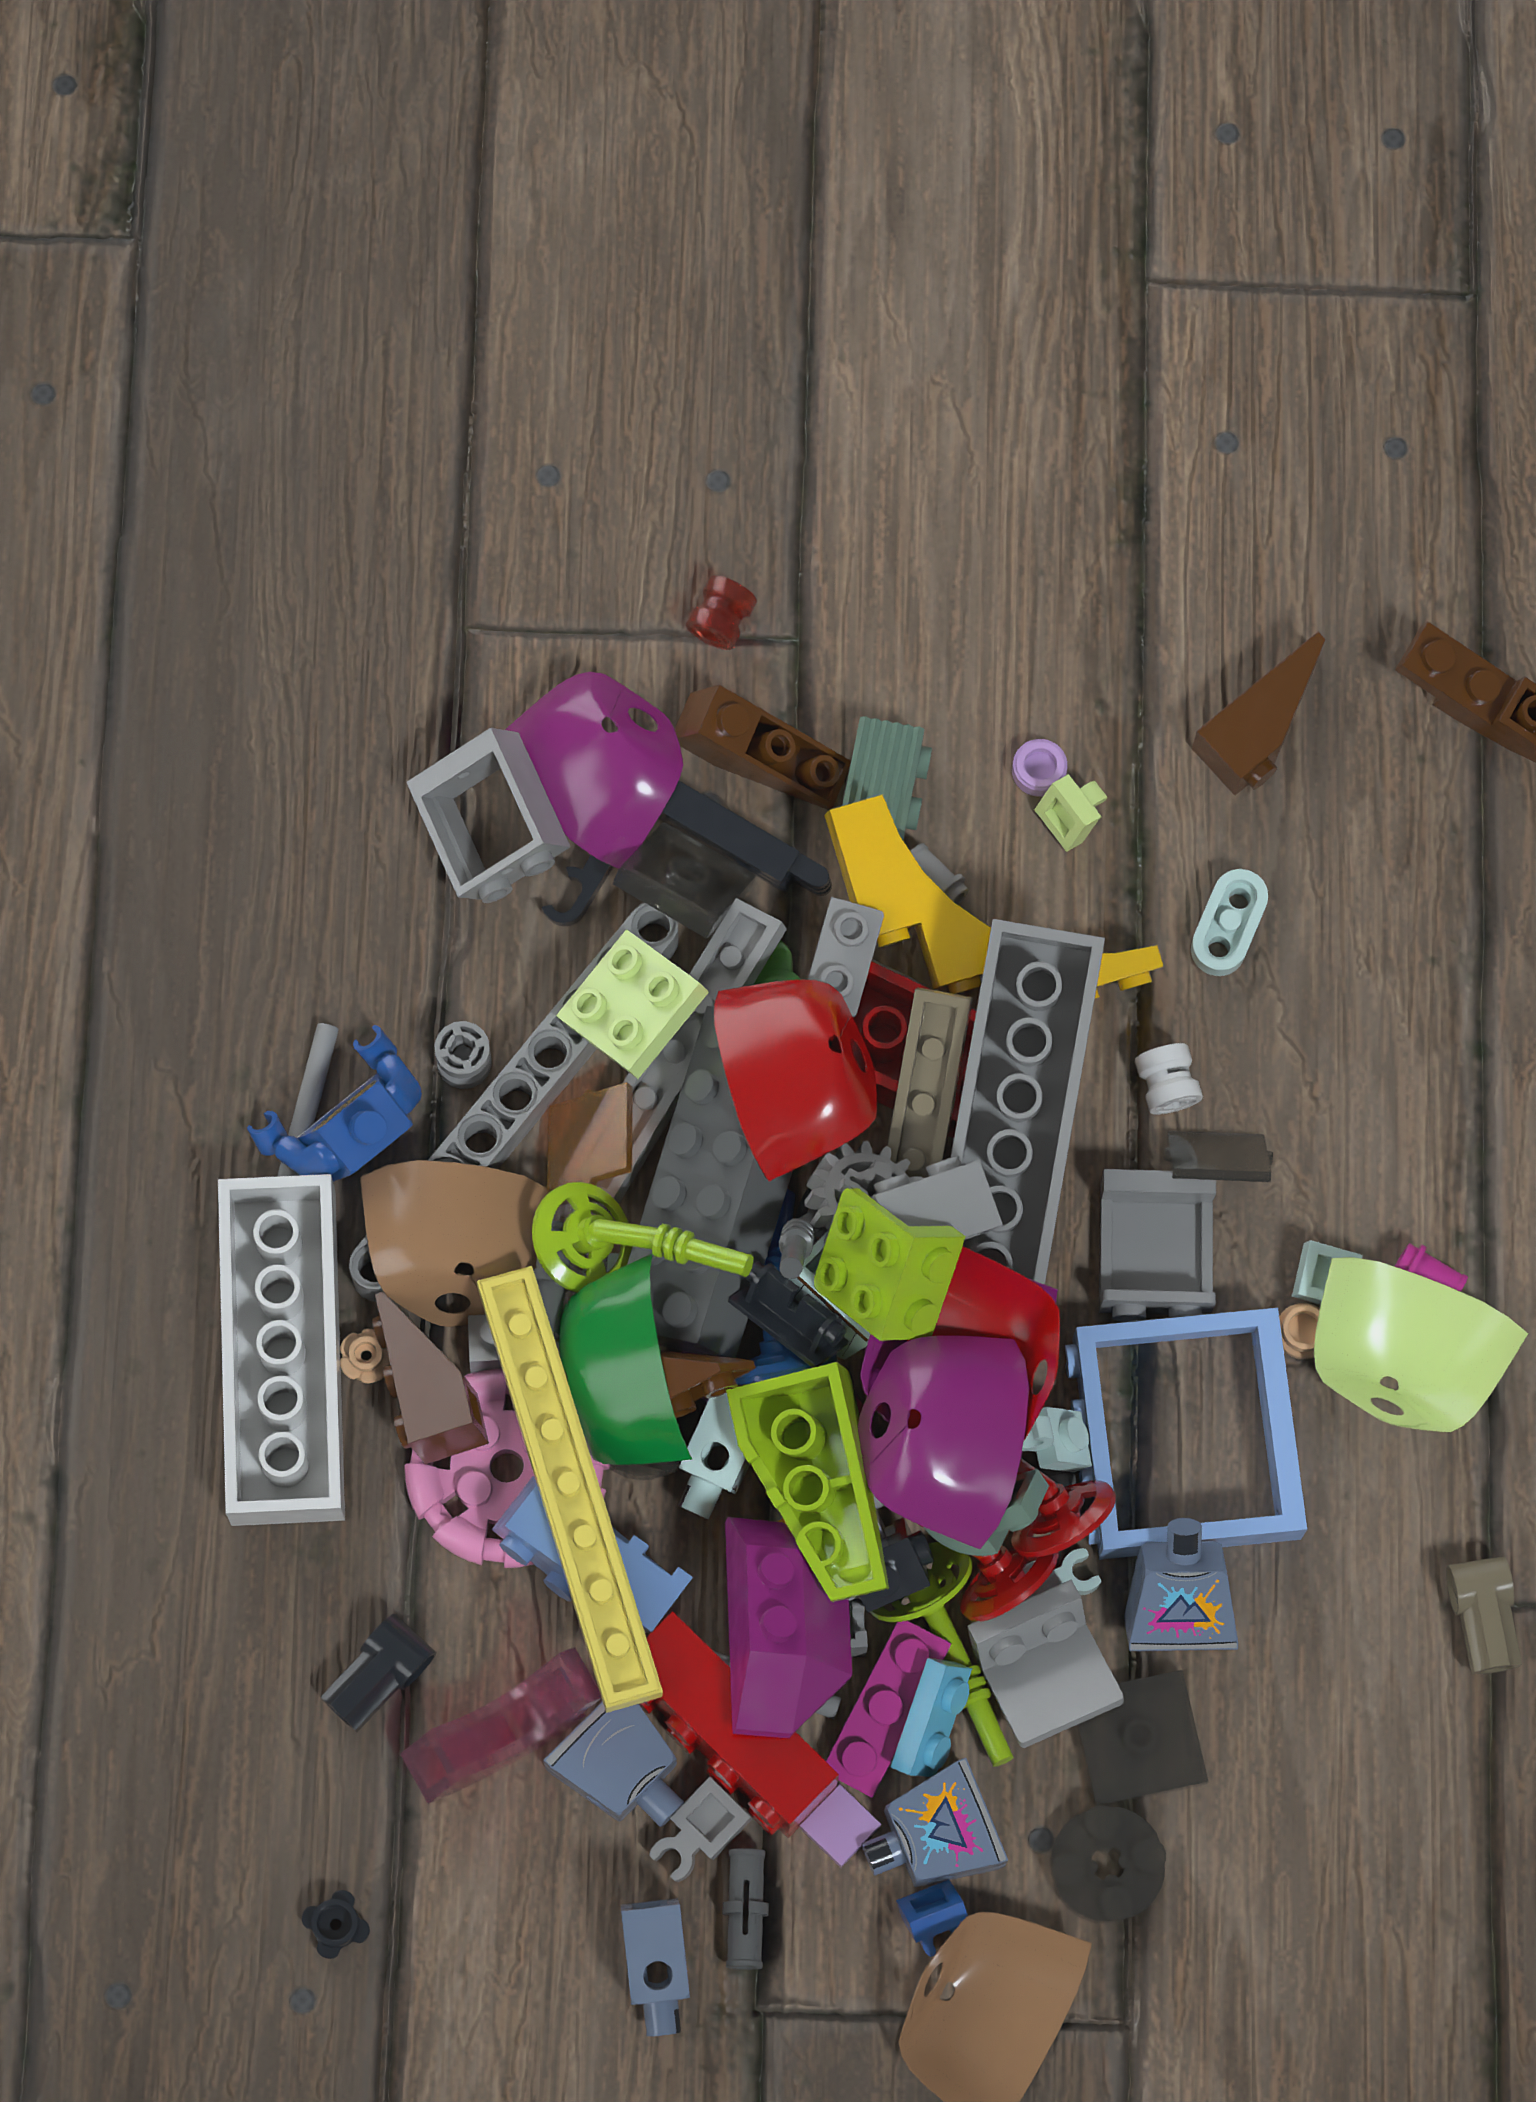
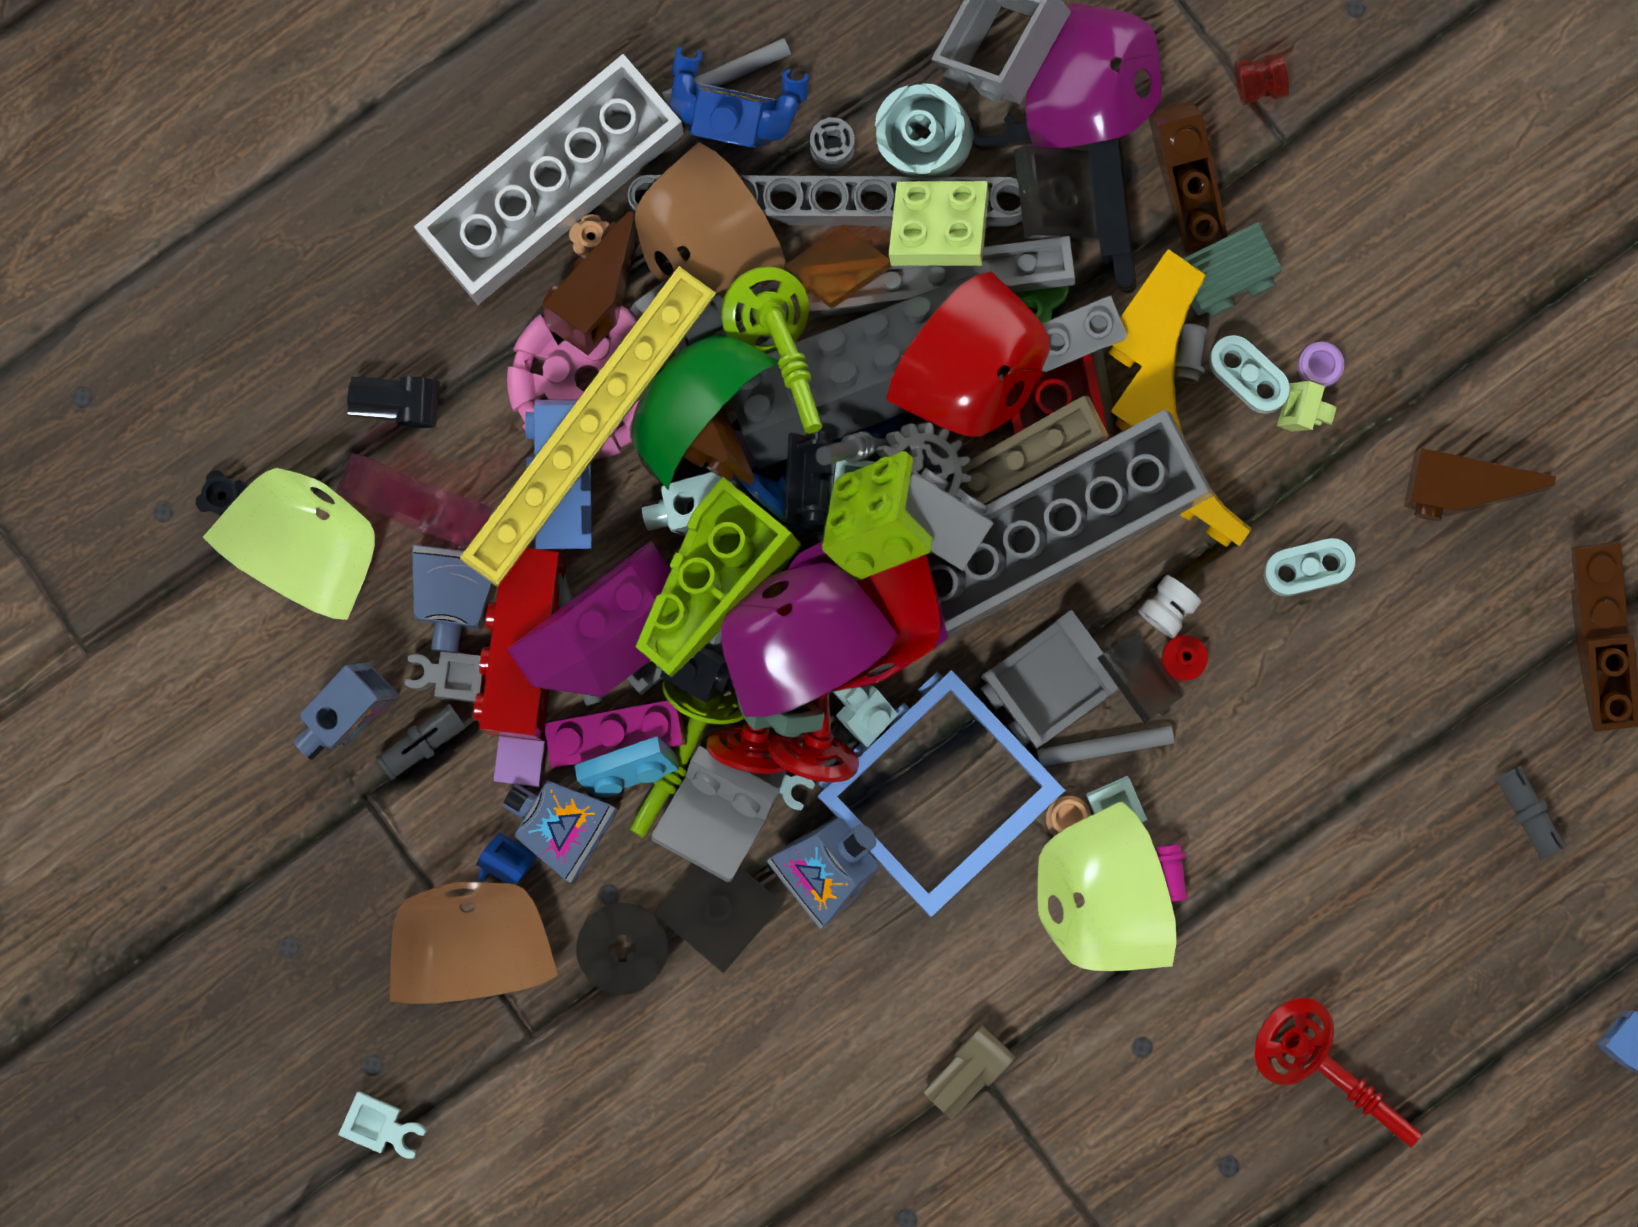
camera: 60 degrees right, 10 degrees up
(447, 1896) = (284, 544): none -> yellowish green piece
(499, 939) = (935, 110): none -> light aqua brick
(996, 833) = (1251, 372): none -> light aqua plate
(1224, 1115) = (1173, 660): none -> red tile
(1259, 1241) = (1105, 746): none -> light grey bar

